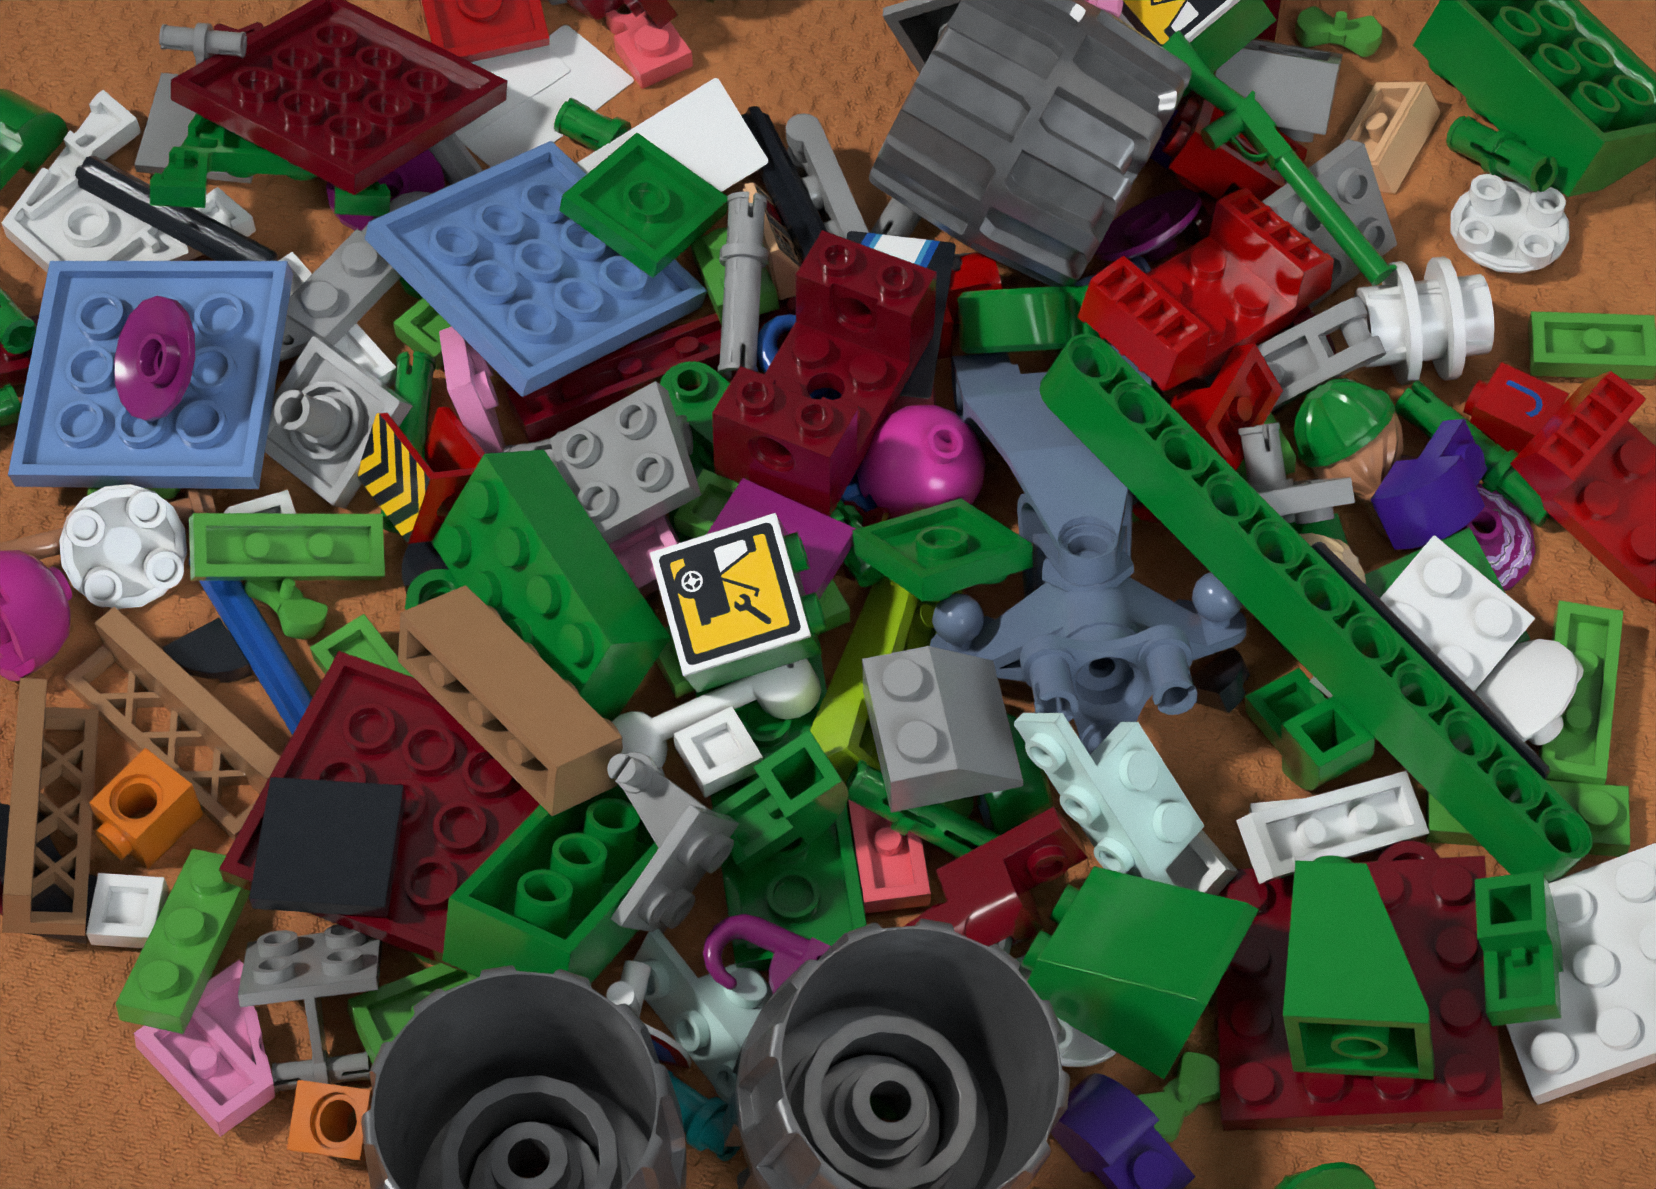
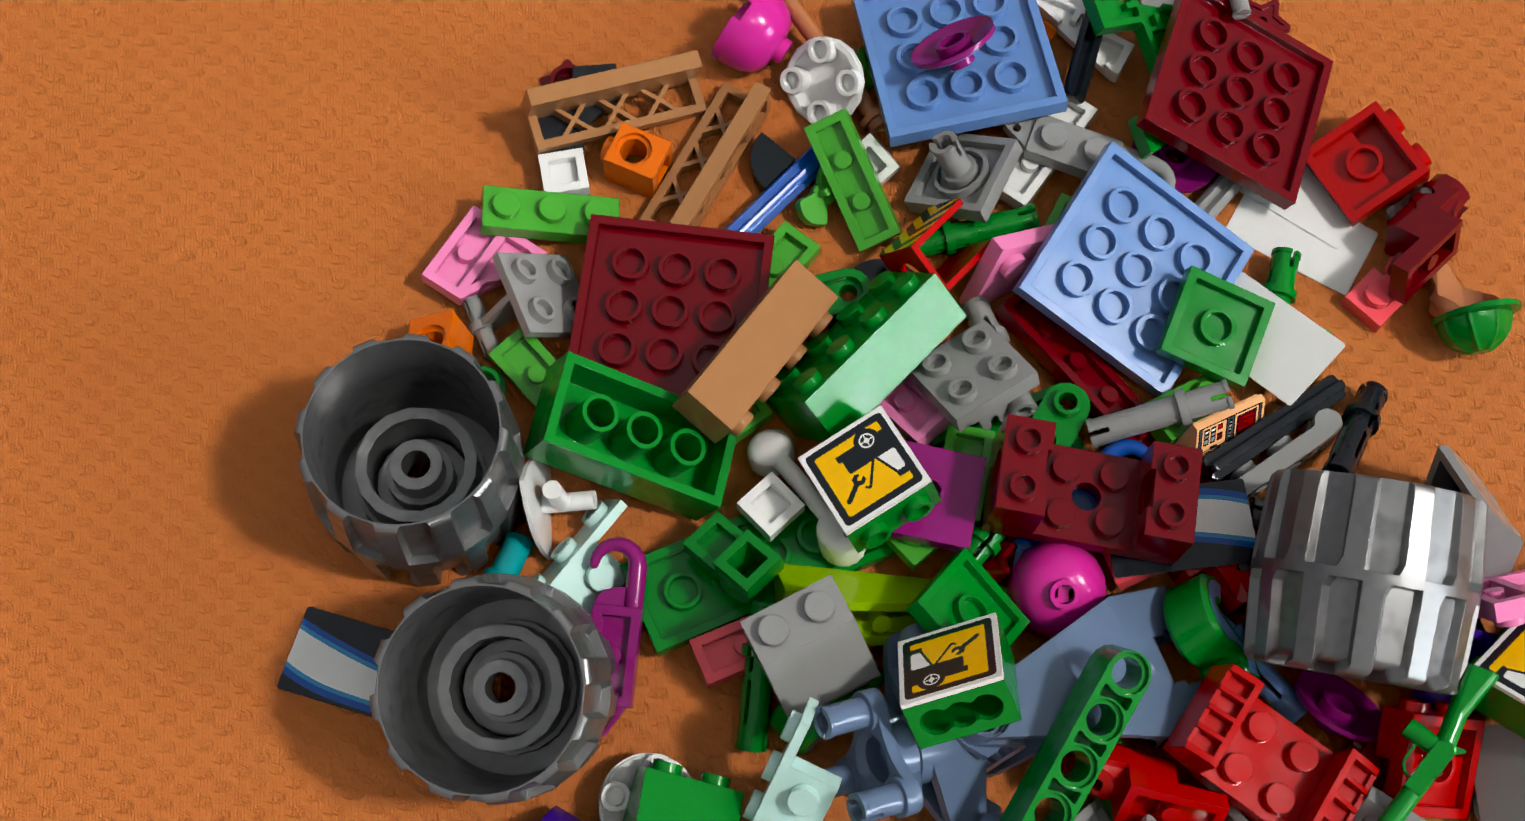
camera: 70 degrees right, 10 degrees up
(328, 847) = (620, 274): black tile -> none
(688, 841) = (676, 497): light grey plate -> none
(829, 107) = (1359, 423): none -> black pin
(992, 884) = (698, 723): dark red plate -> none
(1043, 546) = (958, 681): none -> piece

